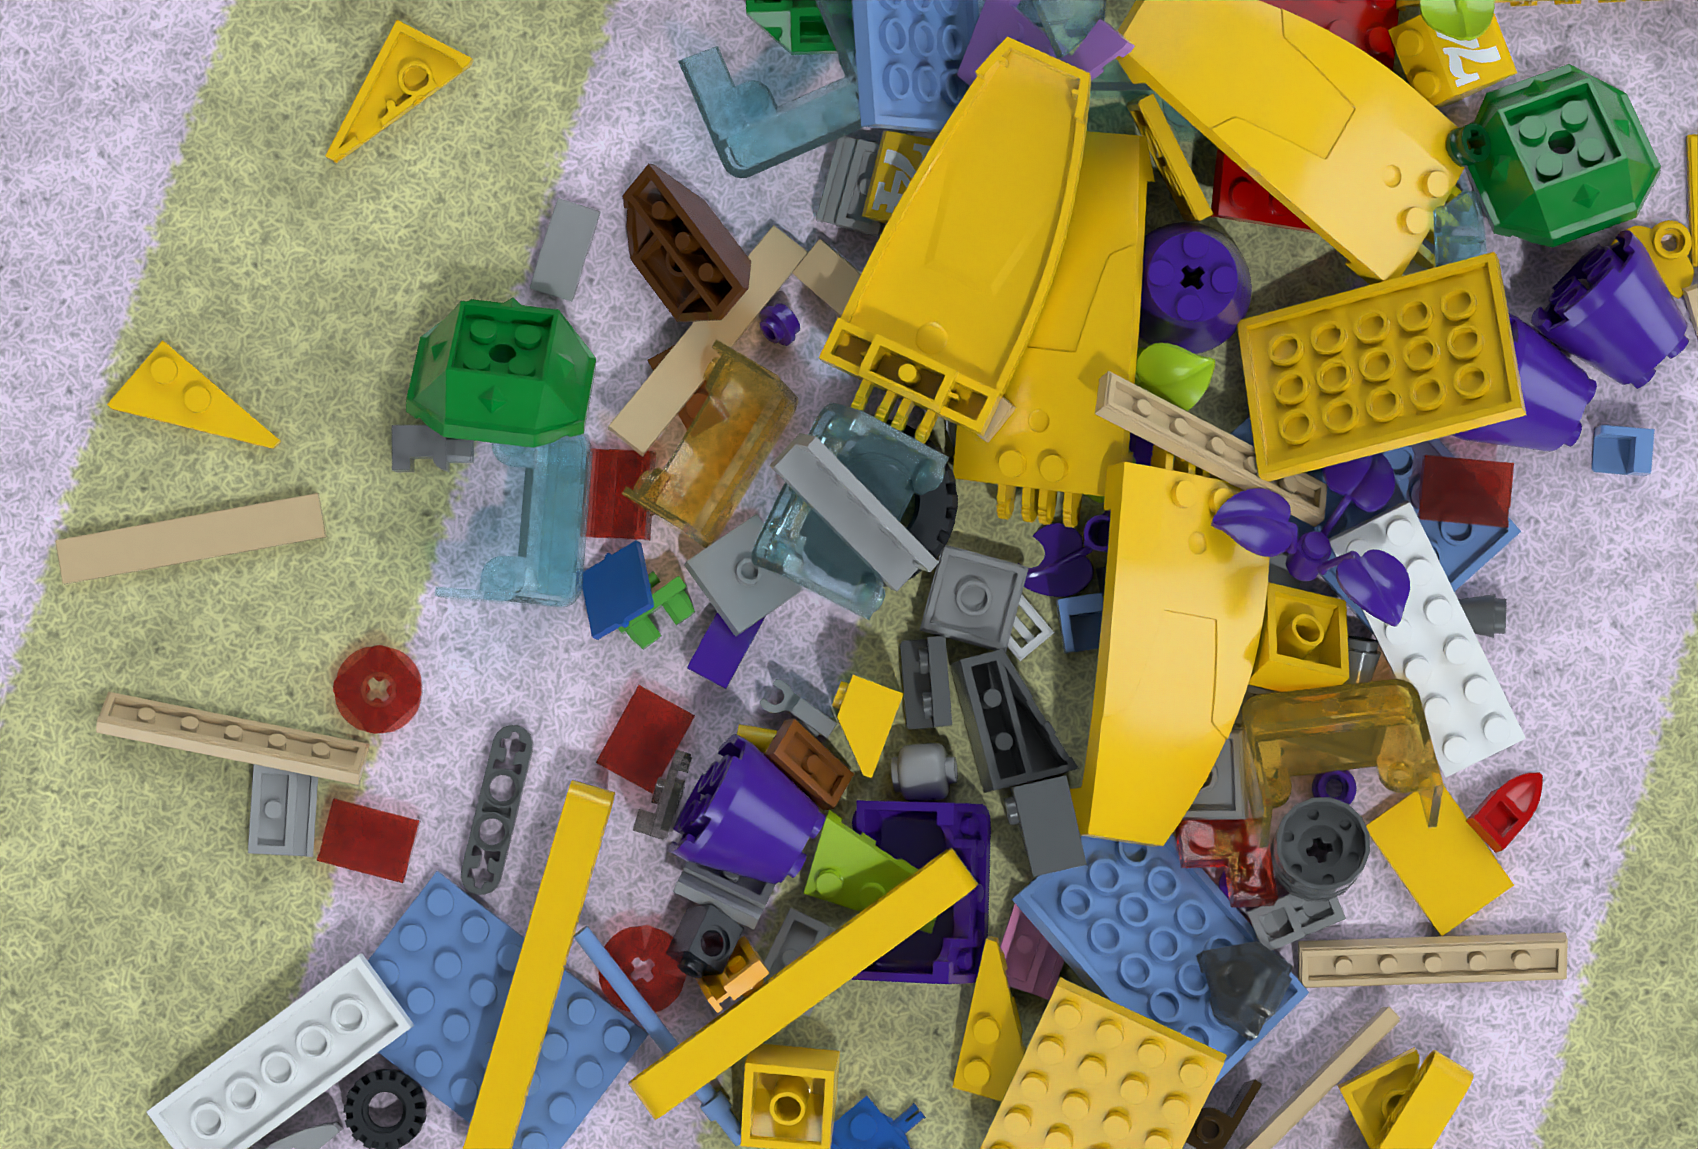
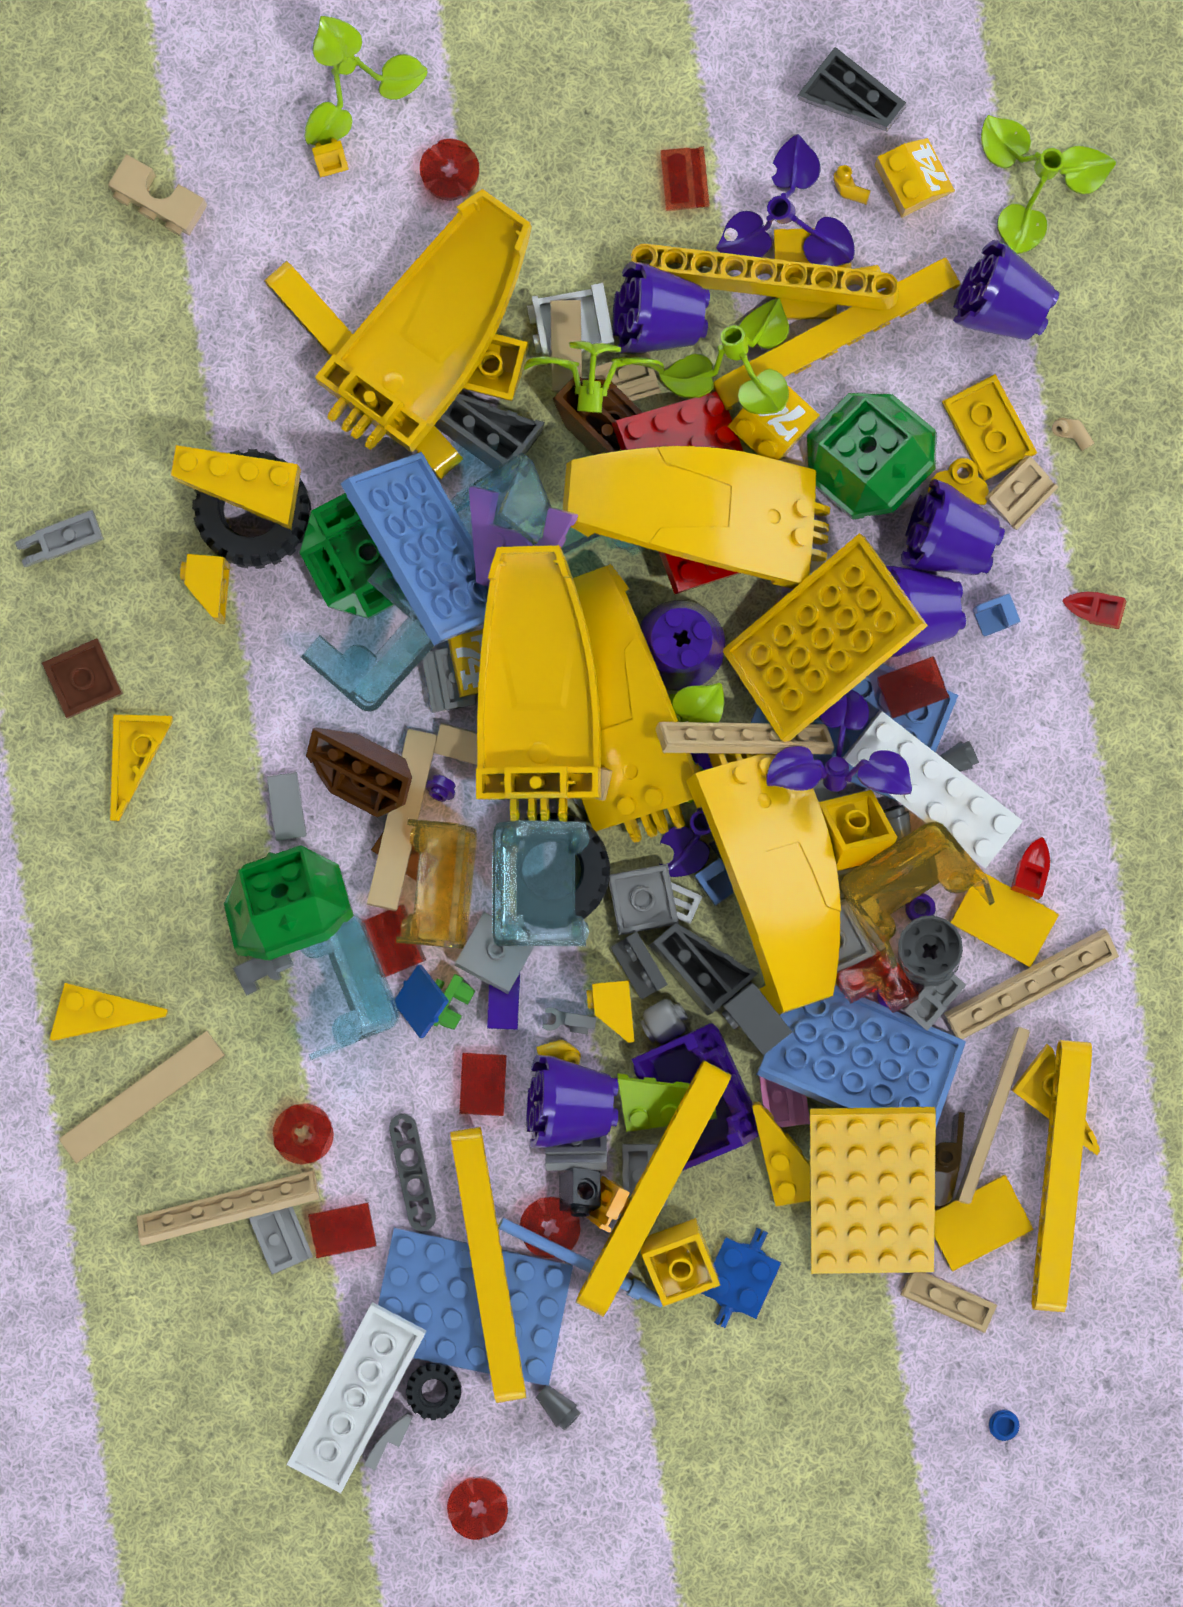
camera: 25 degrees left, 0 degrees up
(668, 797) = (513, 1113): clear smoke plate -> none
(809, 764) = (591, 1051): dark orange plate -> none
(851, 511) = (542, 884): light grey fence -> none
(1169, 158) = (631, 570): yellow tile -> none
(1245, 984) = (924, 1056): clear smoke plate -> none
(1459, 229) = (831, 529): clear light blue slope -> none
(1478, 141) = (806, 479): dark green bush -> none

